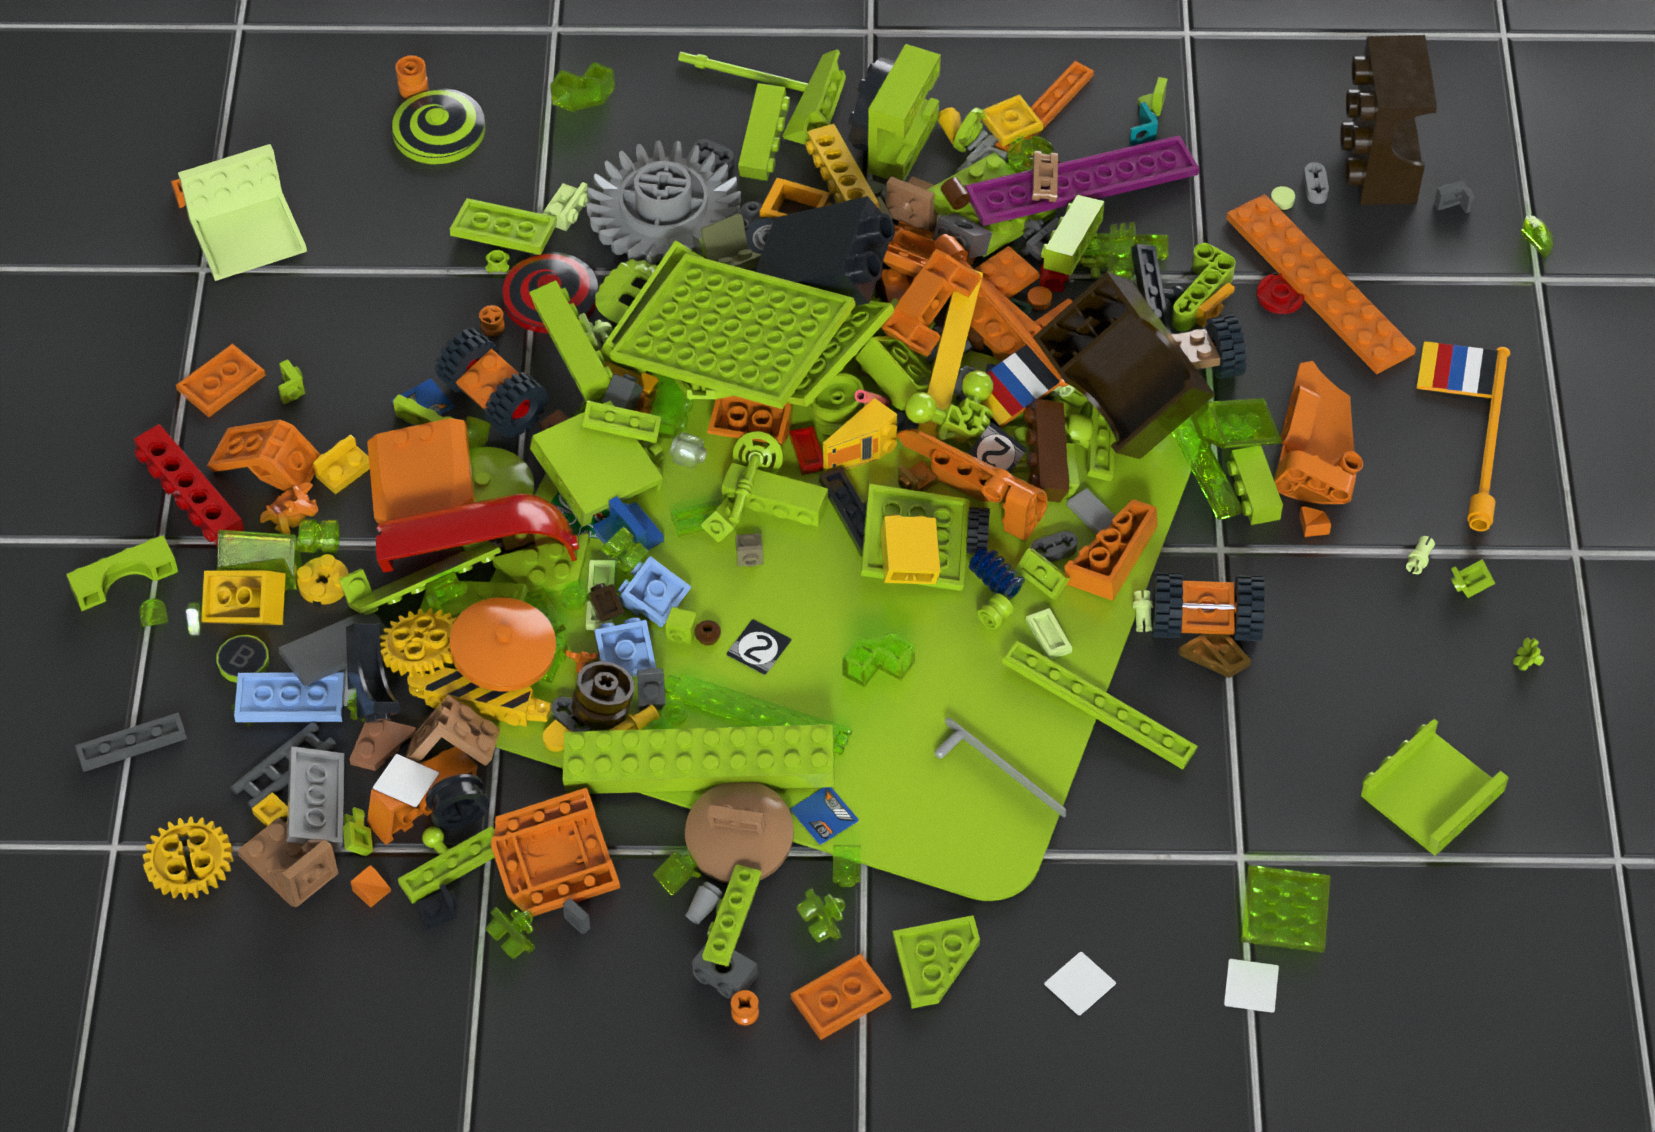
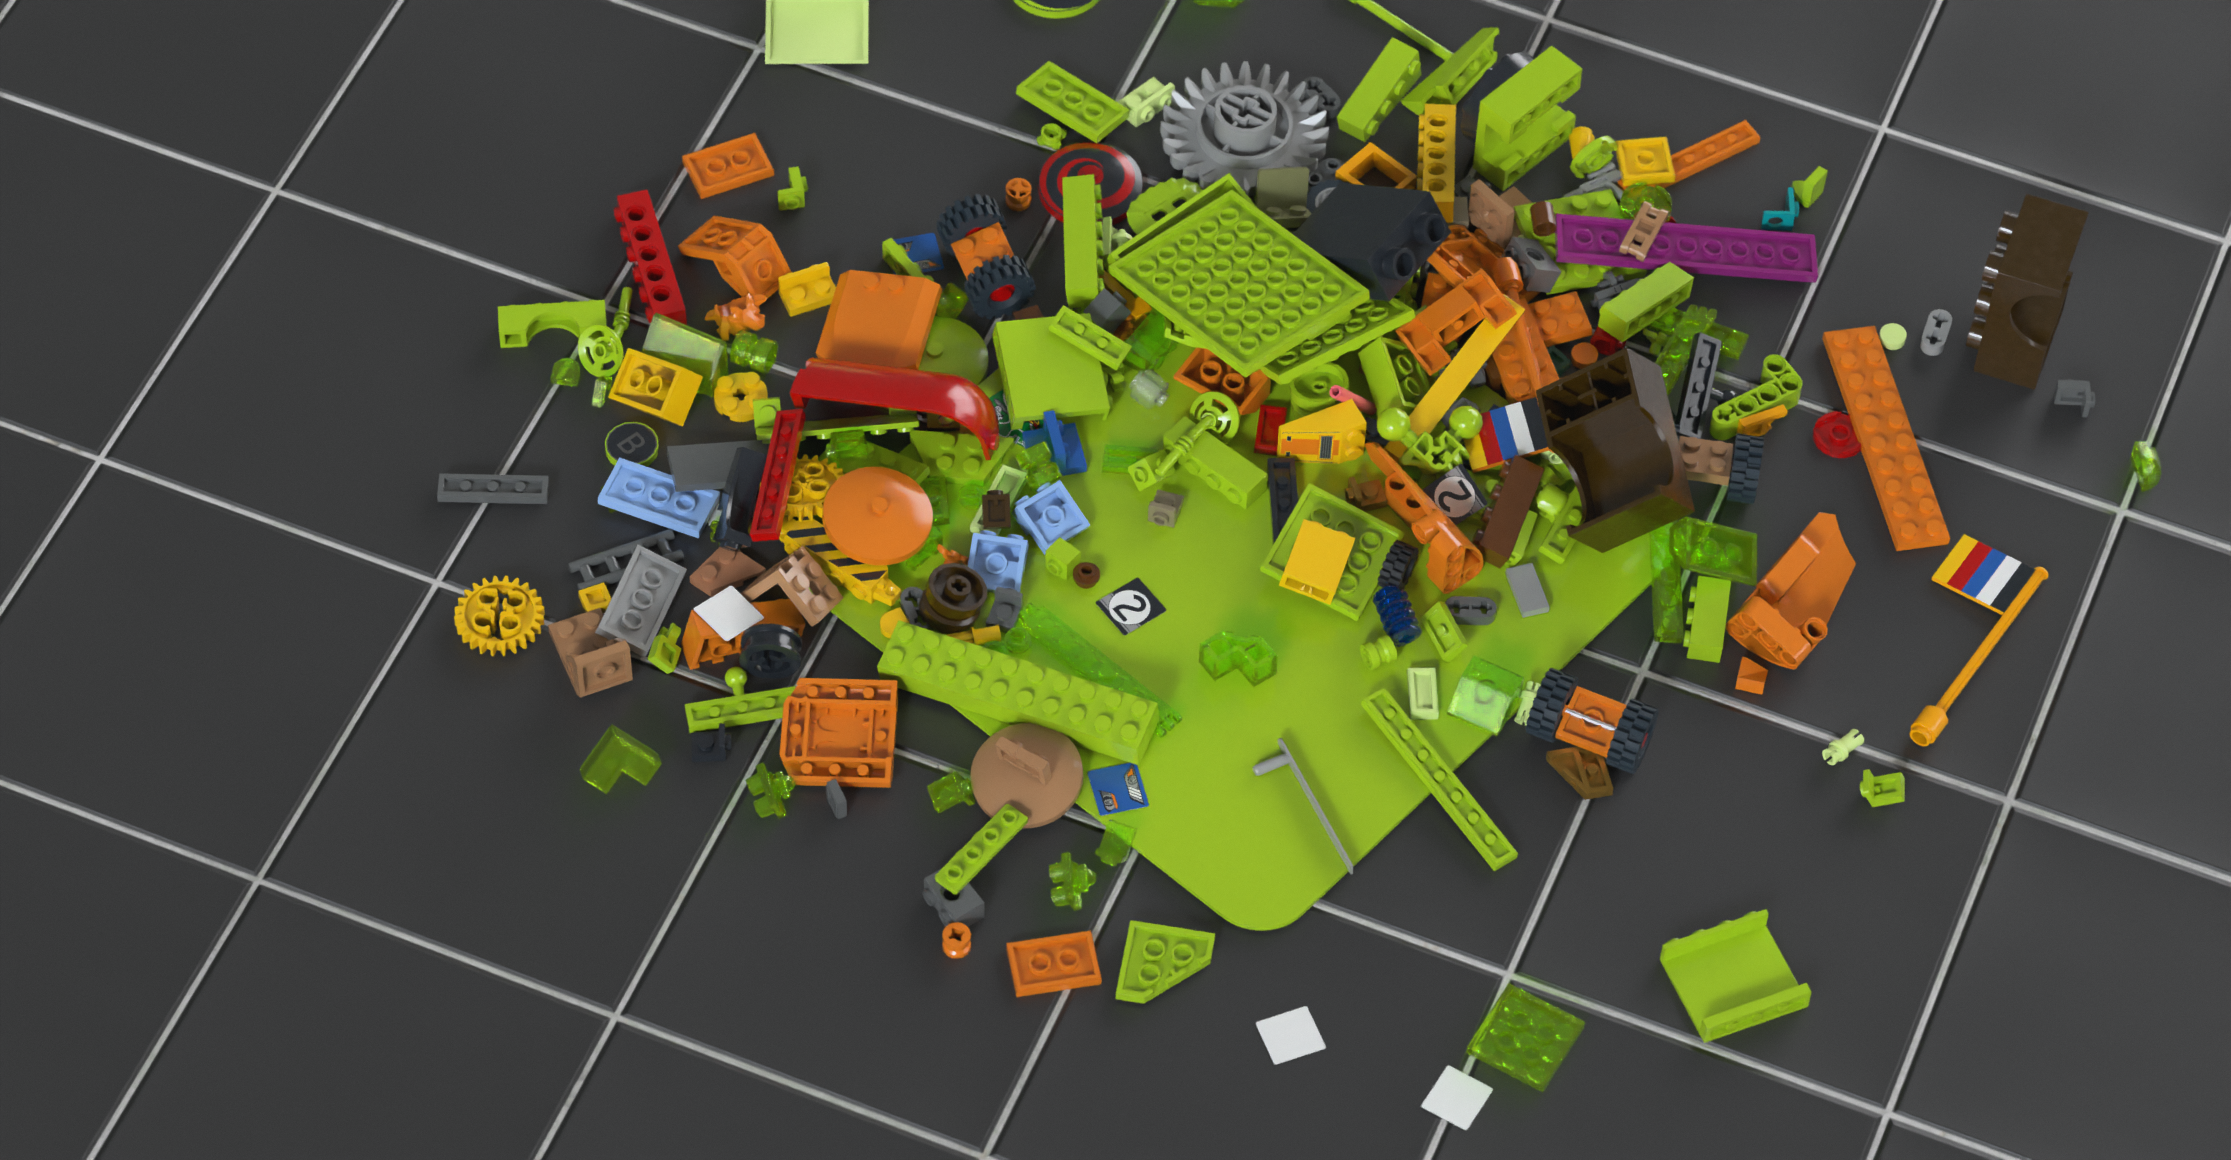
camera: 20 degrees right, 0 degrees up
(181, 578) = (605, 348): none -> lime dish
(355, 949) = (617, 754): none -> clear neon green panel
(370, 886) = (656, 702): orange slope -> none
(397, 639) = (777, 475): none -> red plate
(704, 902) = (962, 829): light grey cone -> none
(1105, 617) = (1486, 695): none -> clear neon green slope
(1114, 552) = (1528, 632): orange wedge -> none
(1528, 655) = (1901, 883): lime plant -> none

